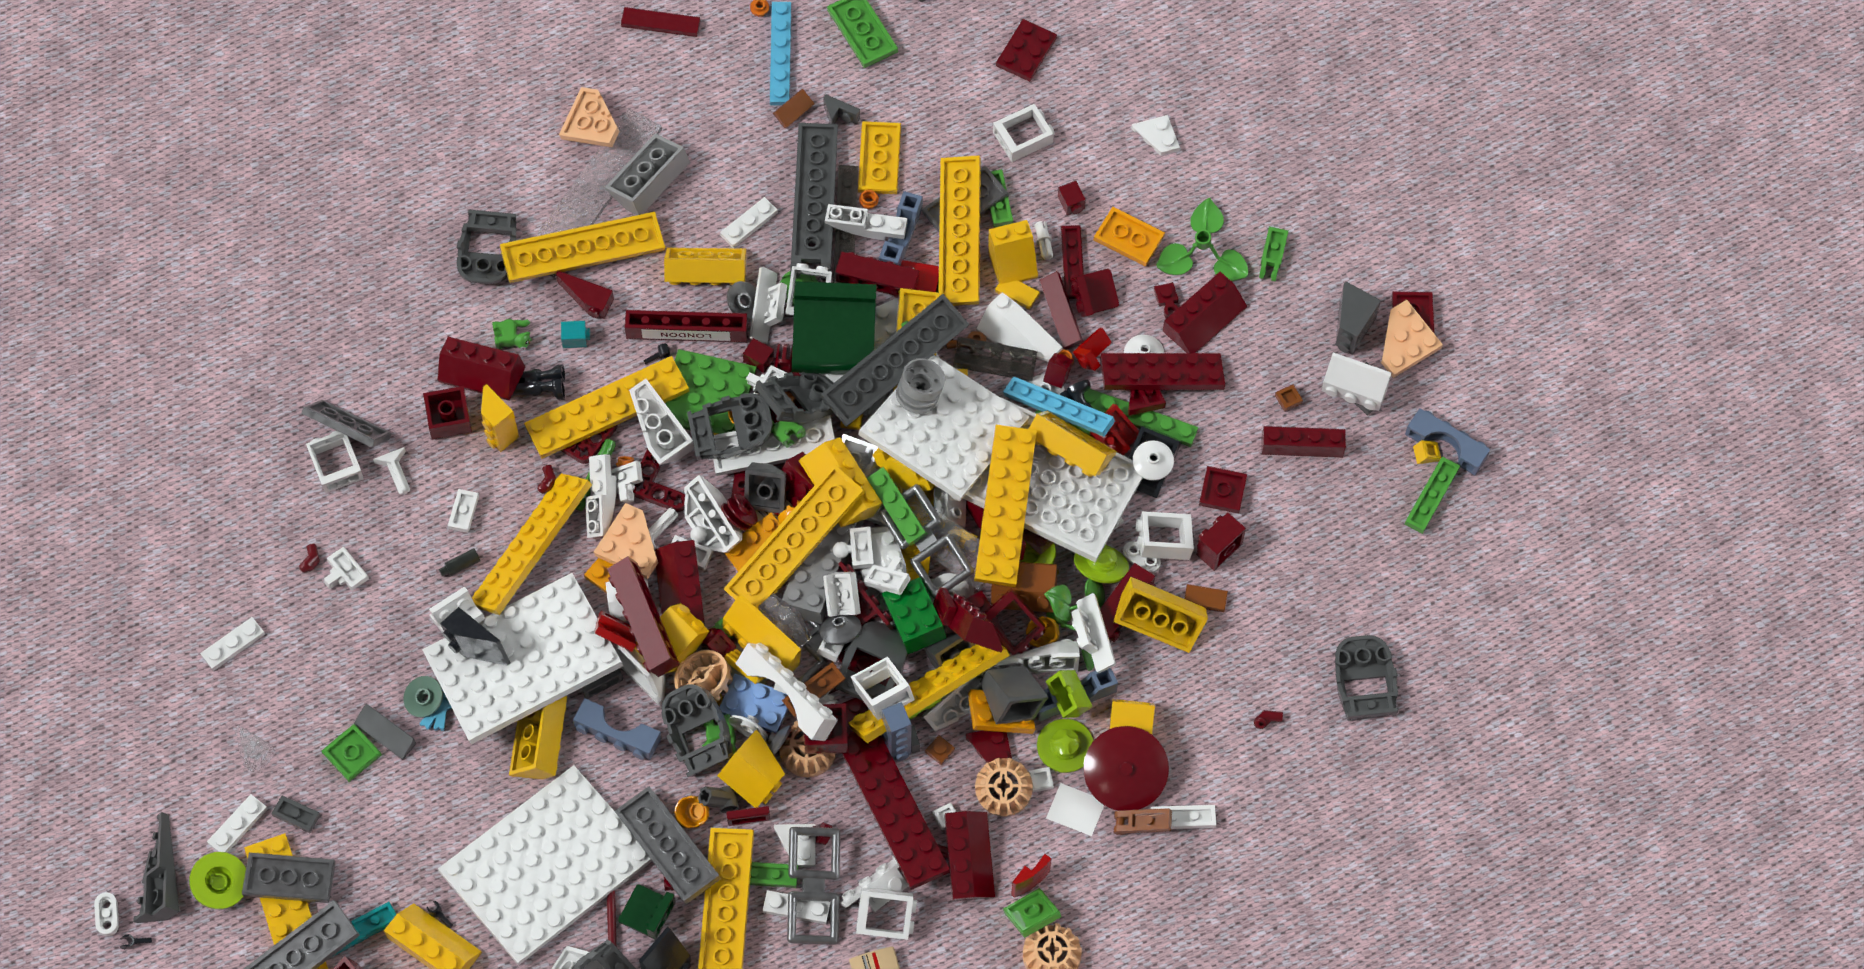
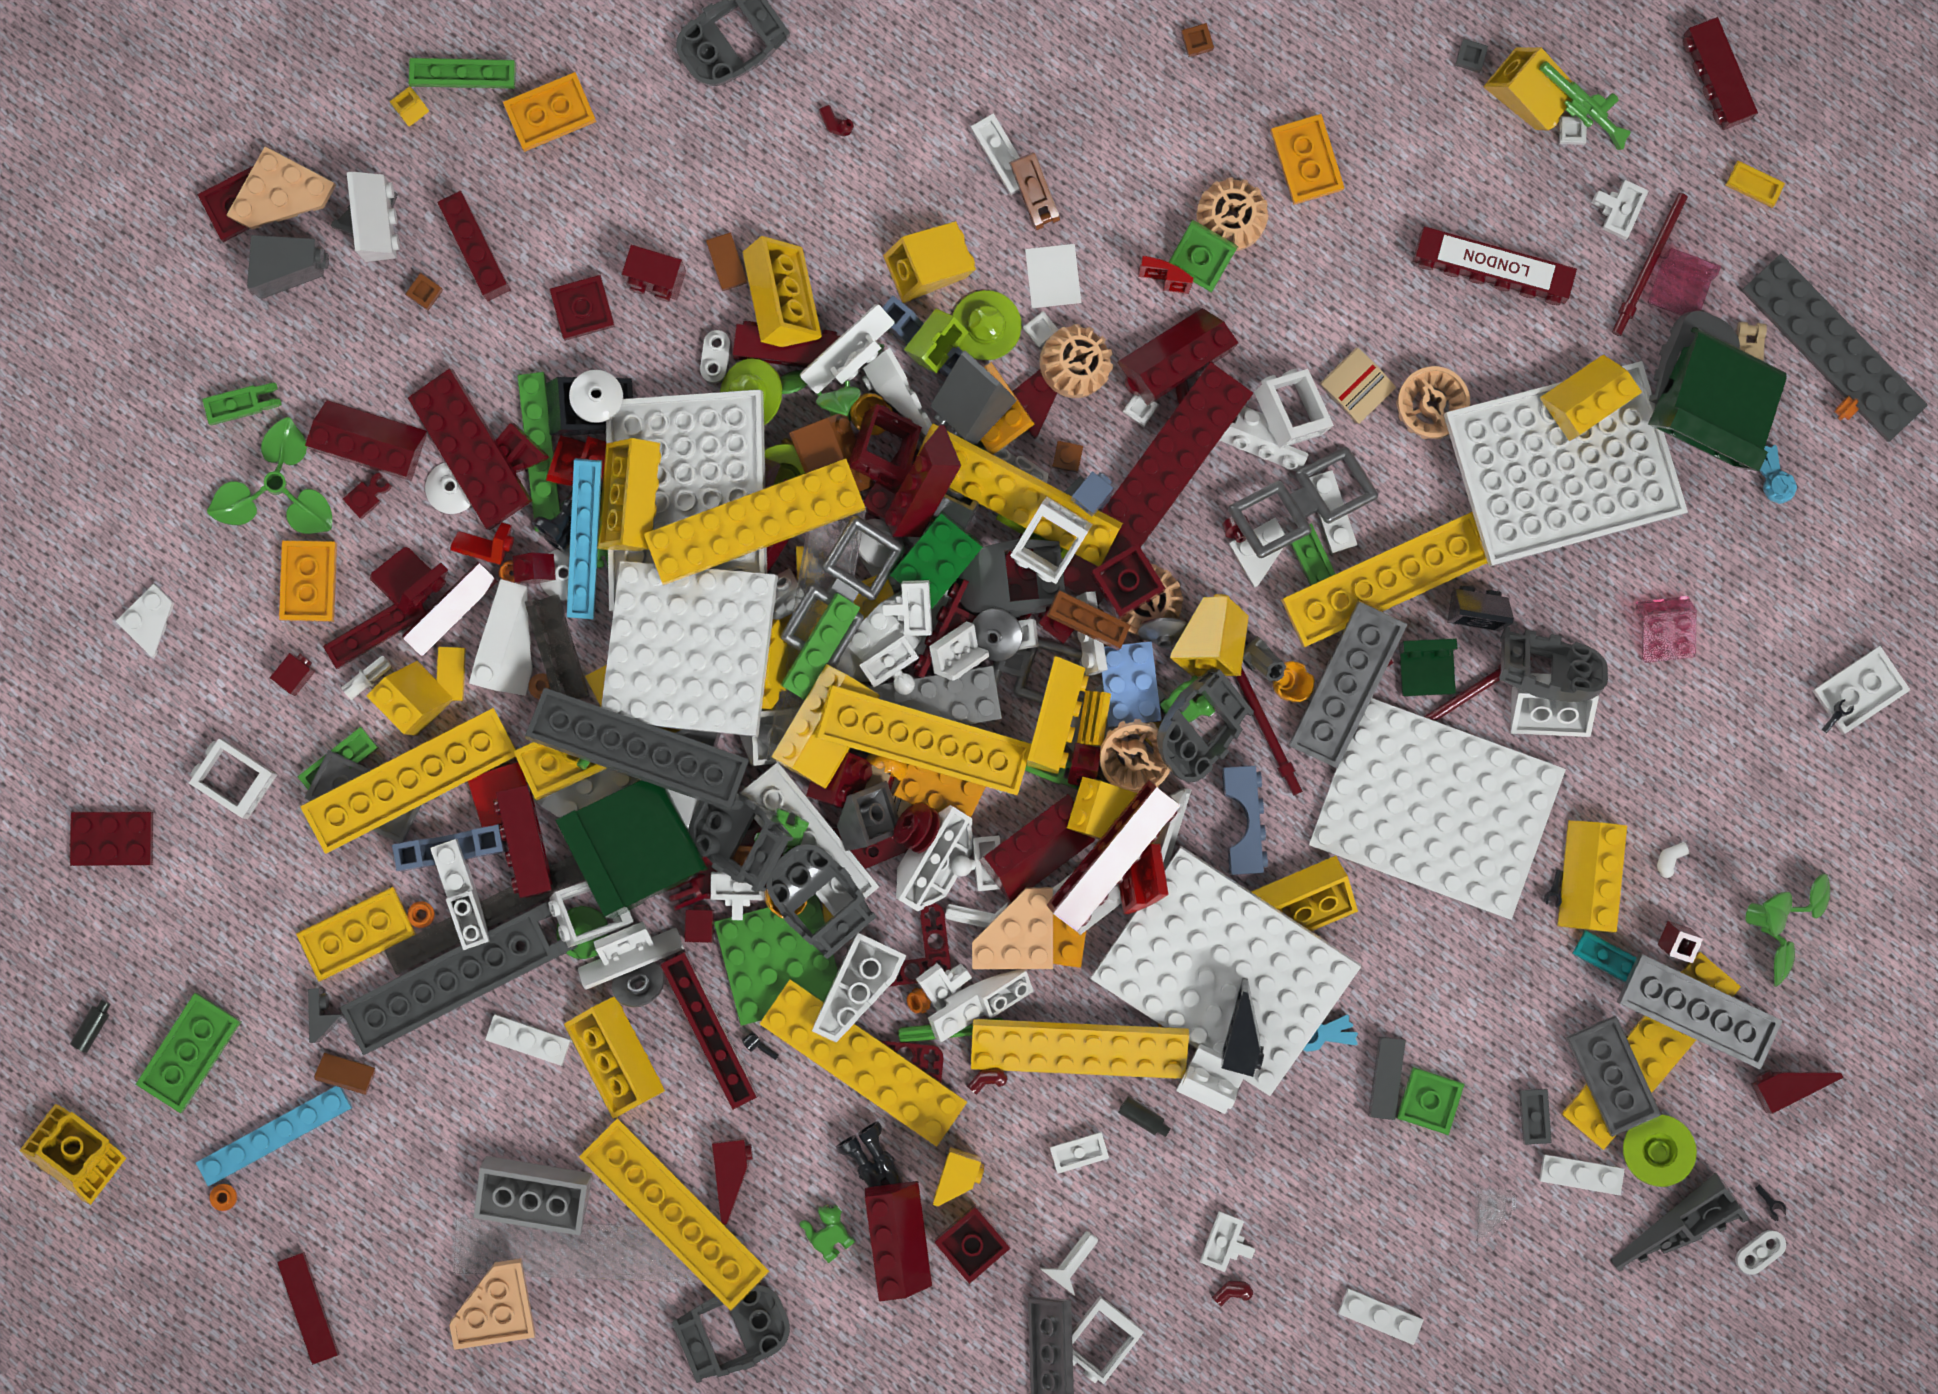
camera: 120 degrees left, 20 degrees up
(417, 691) = (1334, 1065): sand green dish -> none
(574, 334) = (788, 1157): teal brick -> none
(635, 778) = (1285, 768): none -> dark red bar
(747, 725) = (1163, 672): white dish -> none
(748, 816) = (1261, 619): dark red tile -> none
(786, 619) = (1021, 706): clear brick -> none
(812, 716) = (1134, 592): white arch -> none
(920, 386) = (653, 683): light grey wheel -> none
(944, 606) = (914, 525): dark red tile -> none
(1126, 768) = (984, 239): dark red dish -> none
(1162, 549) = (668, 316): white window -> none
(1374, 536) = (549, 111): none -> light orange plate
(1428, 427) = (387, 54): sand blue arch -> none

